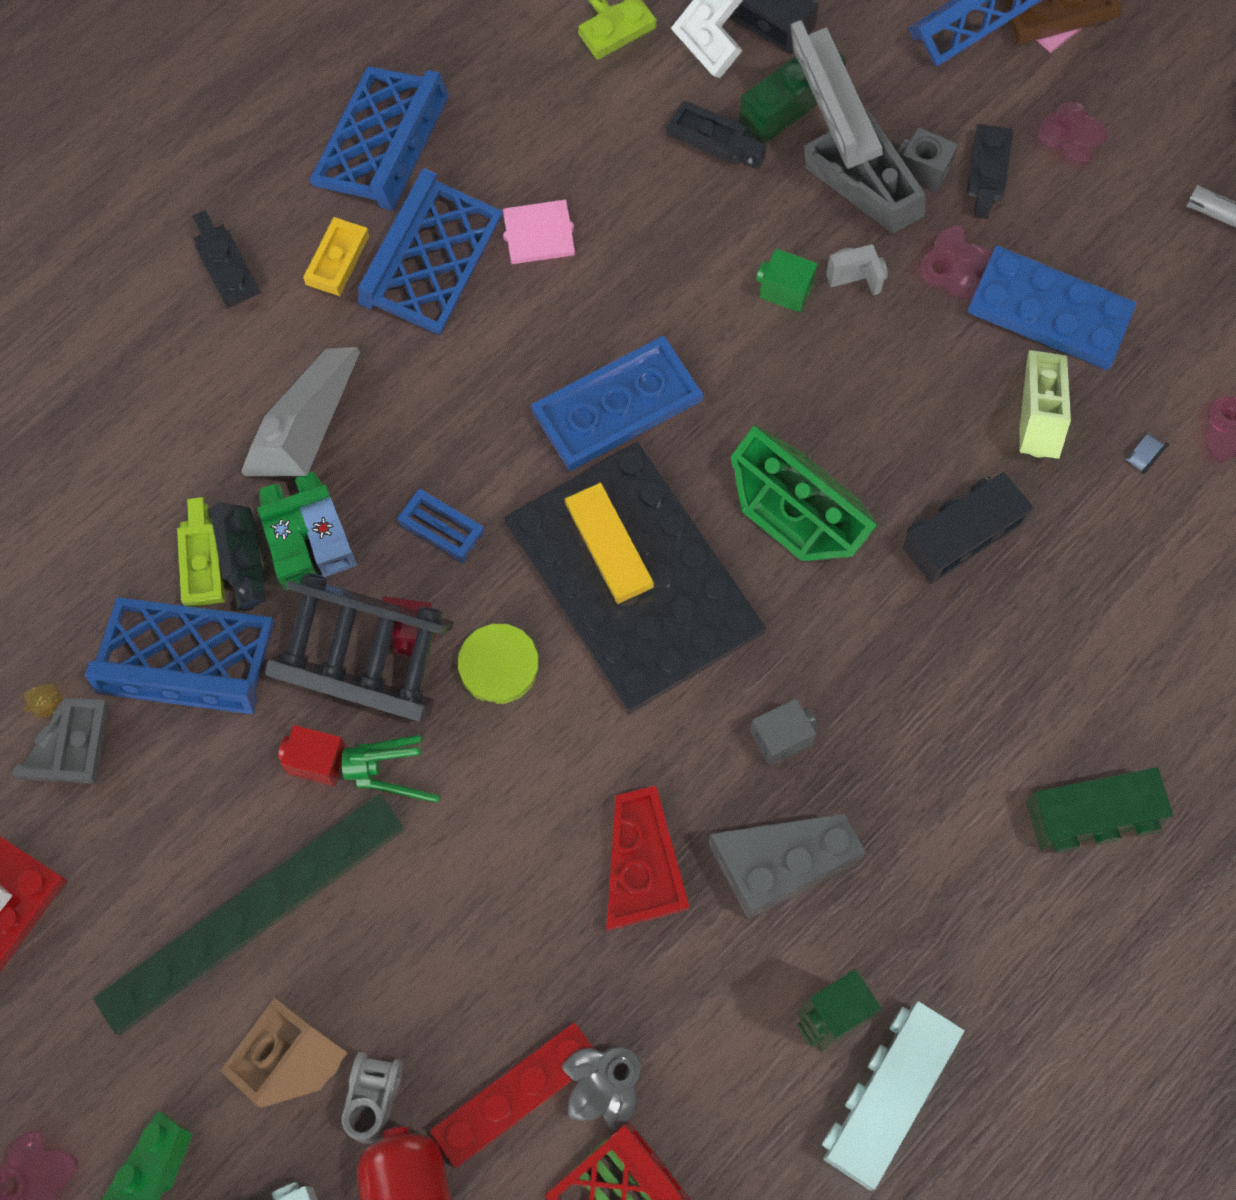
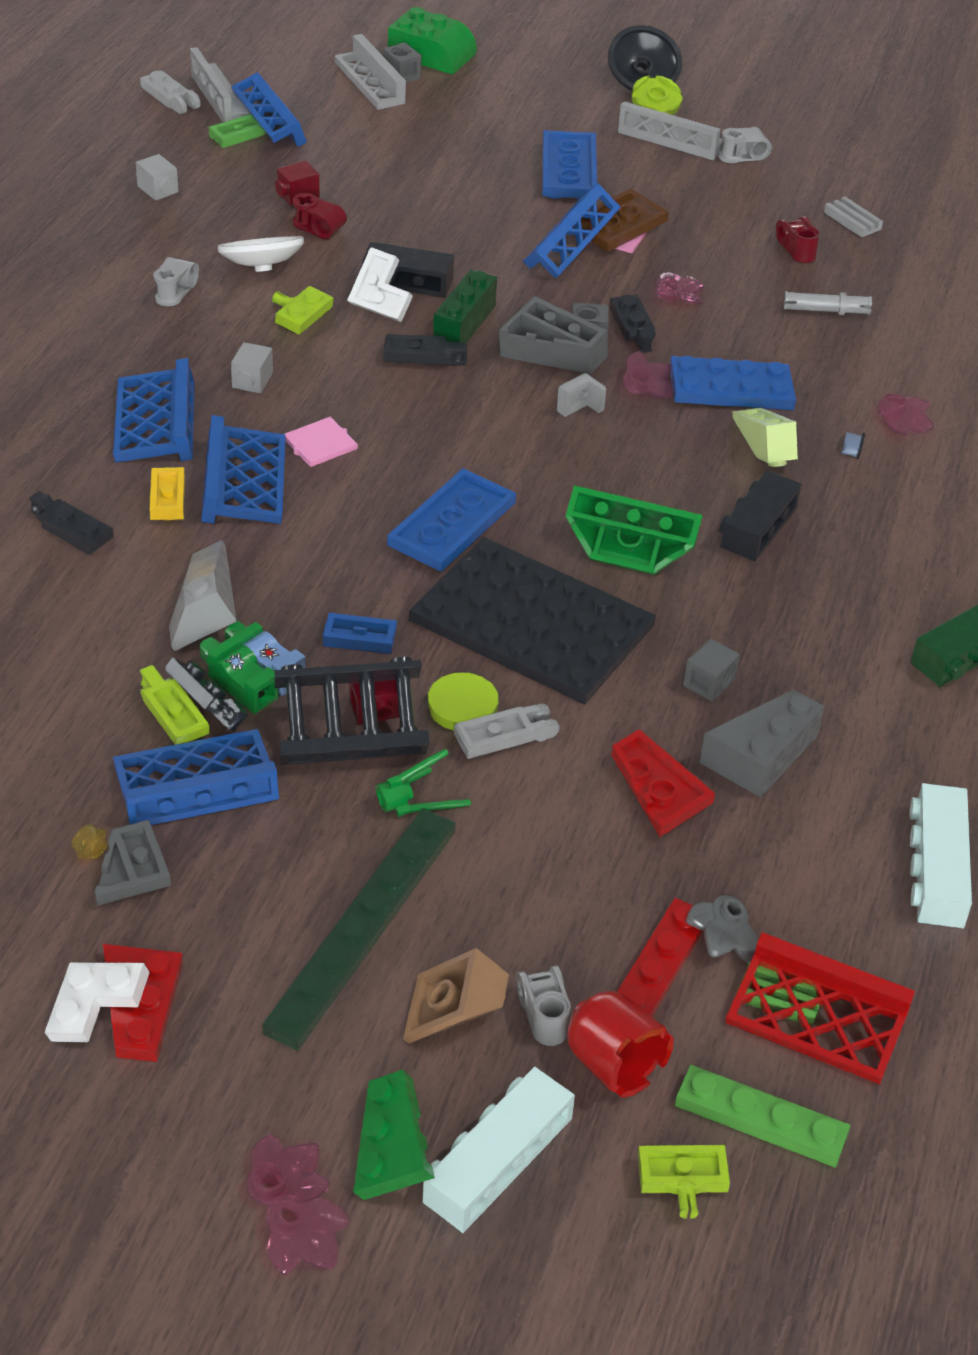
camera: 30 degrees left, 25 degrees down
(312, 755) = (351, 800): red brick -> none
(511, 101) = (252, 367): none -> light grey brick
(517, 723) = (505, 730): none -> light grey hinge
(609, 543) = (506, 594): yellow tile -> none
(786, 280) = (533, 414): green brick -> none
(835, 95) = (505, 291): light grey fence -> none
(837, 1011) = (872, 797): dark green brick -> none

